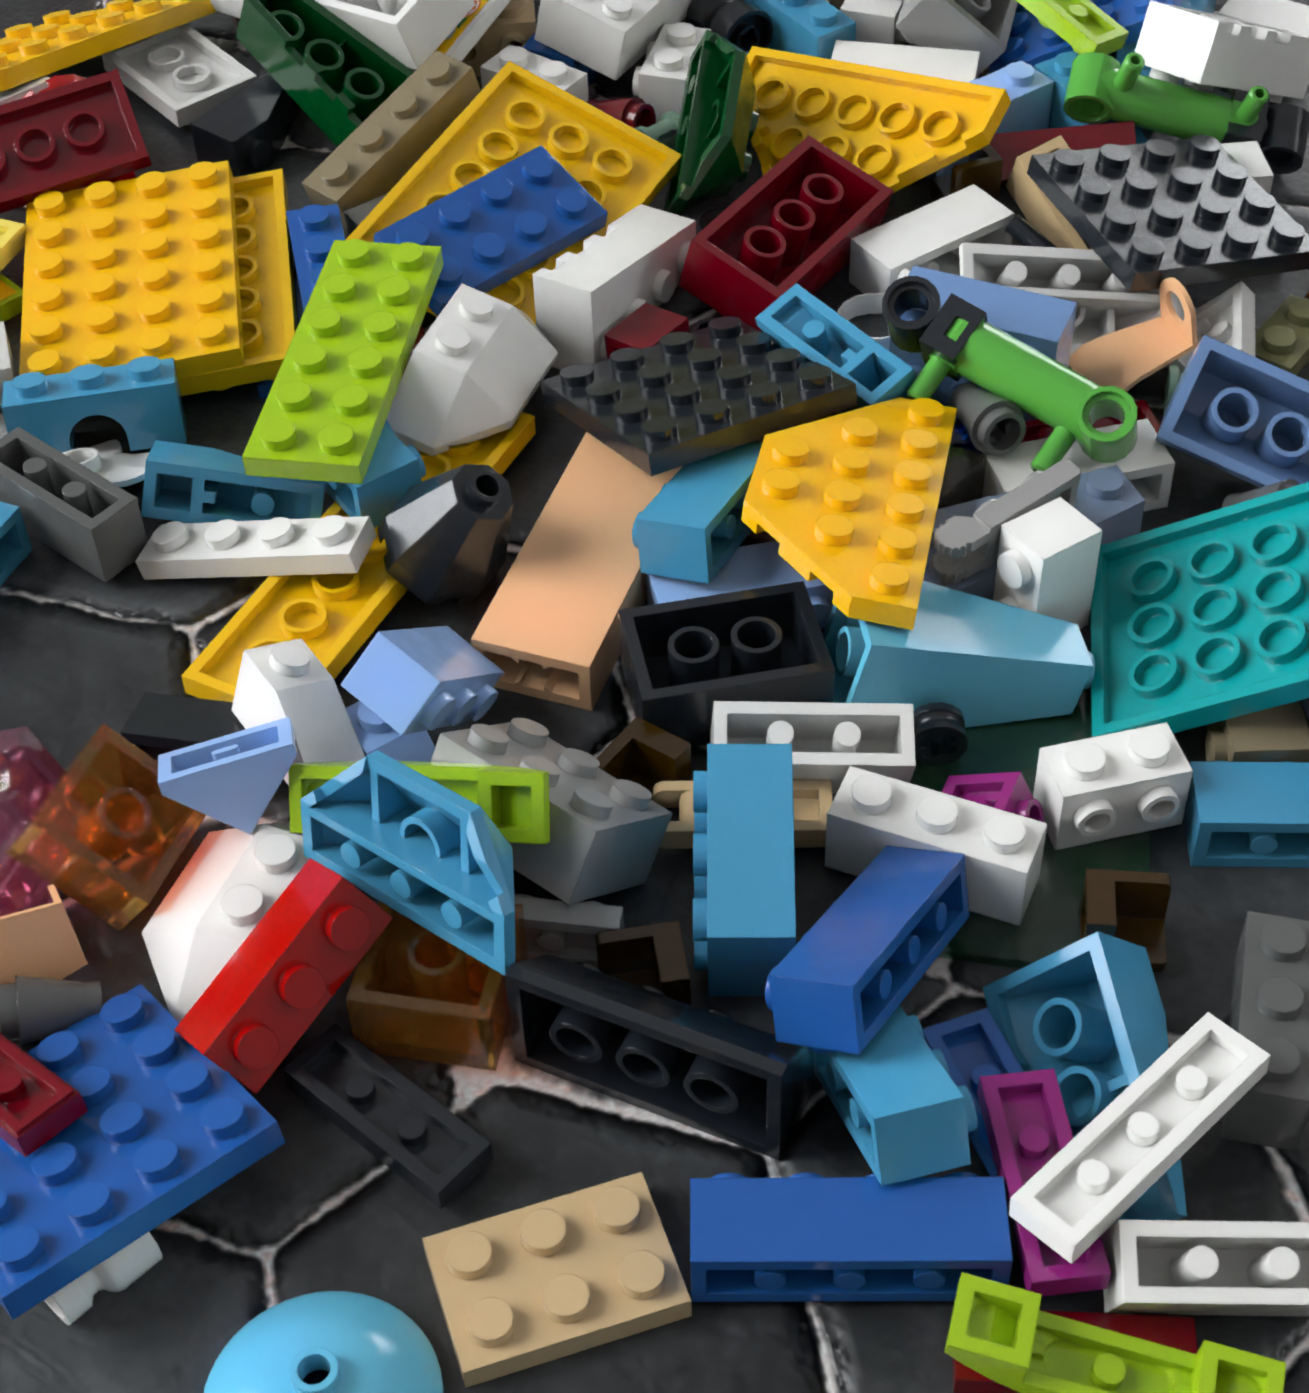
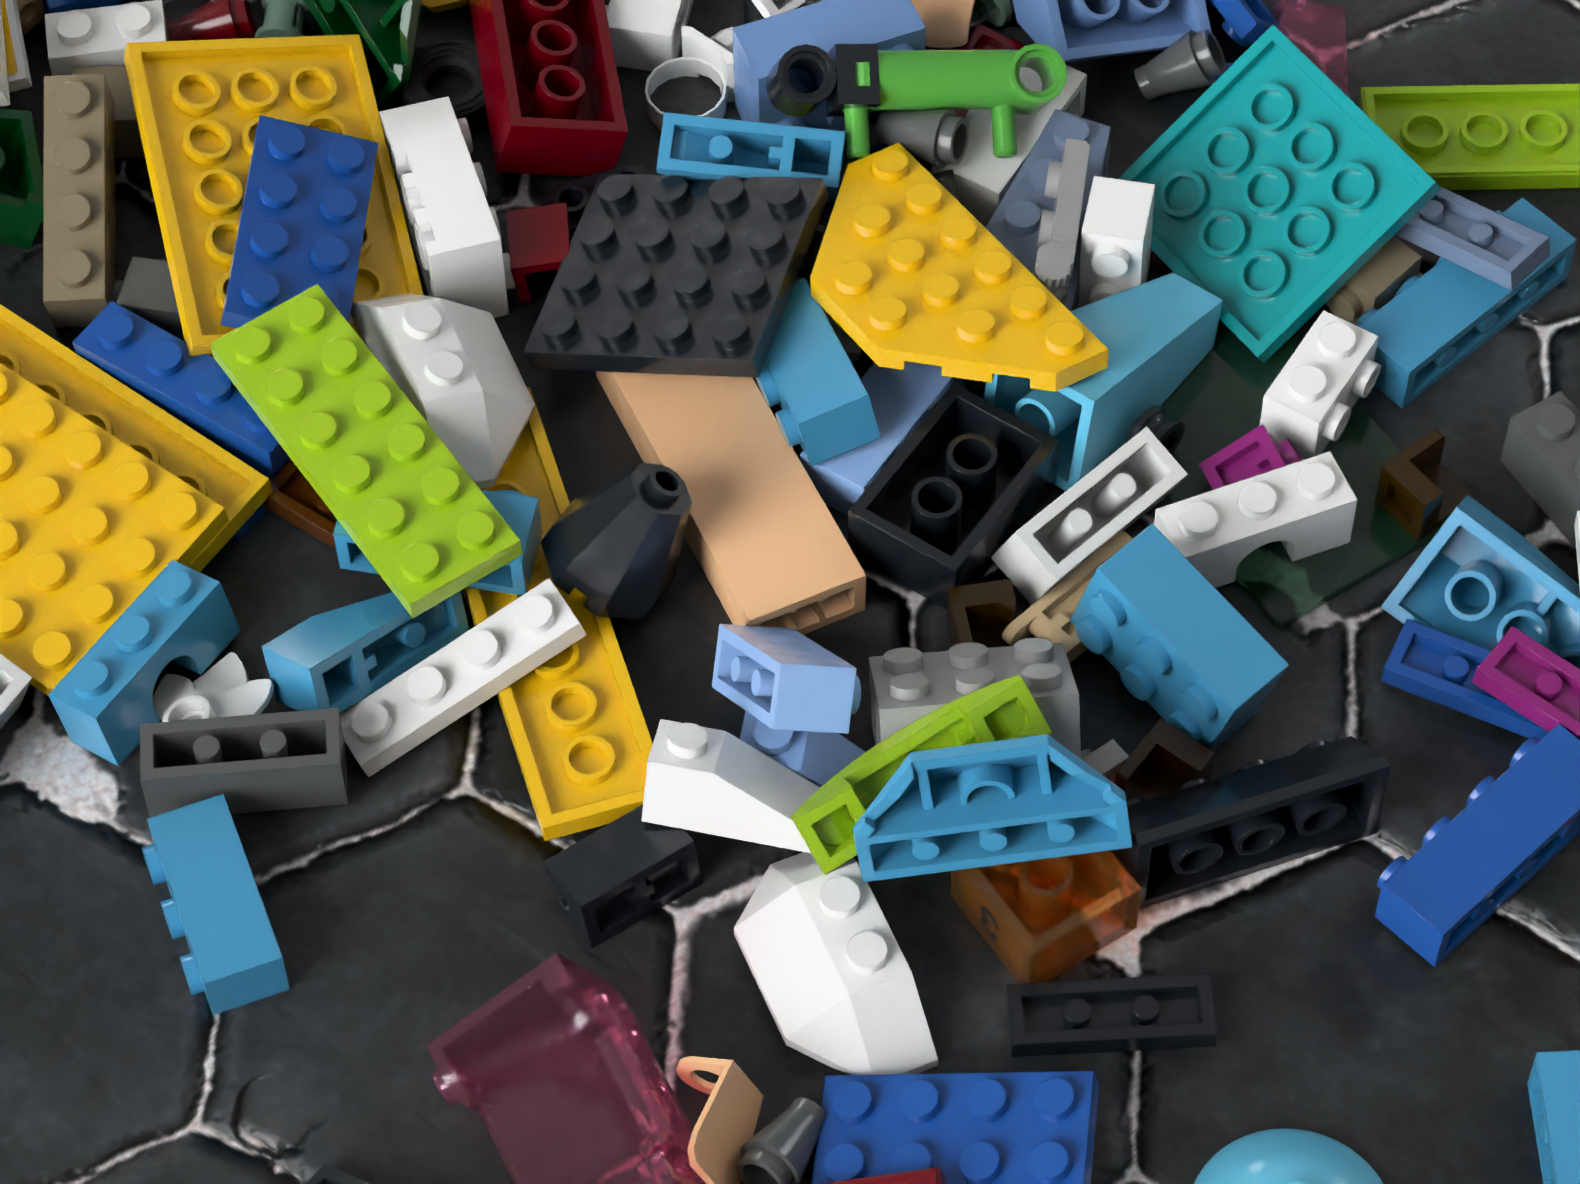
camera: 45 degrees left, 10 degrees up
(107, 830) = (681, 979): clear orange brick -> none
(231, 774) = (750, 858): light blue slope -> none
(283, 974) = (958, 973): red brick -> none
(555, 1278) = (1337, 1025): tan plate -> none
(868, 950) = (1324, 634): blue brick -> none
(900, 1102) = (1428, 720): dark azure brick -> none

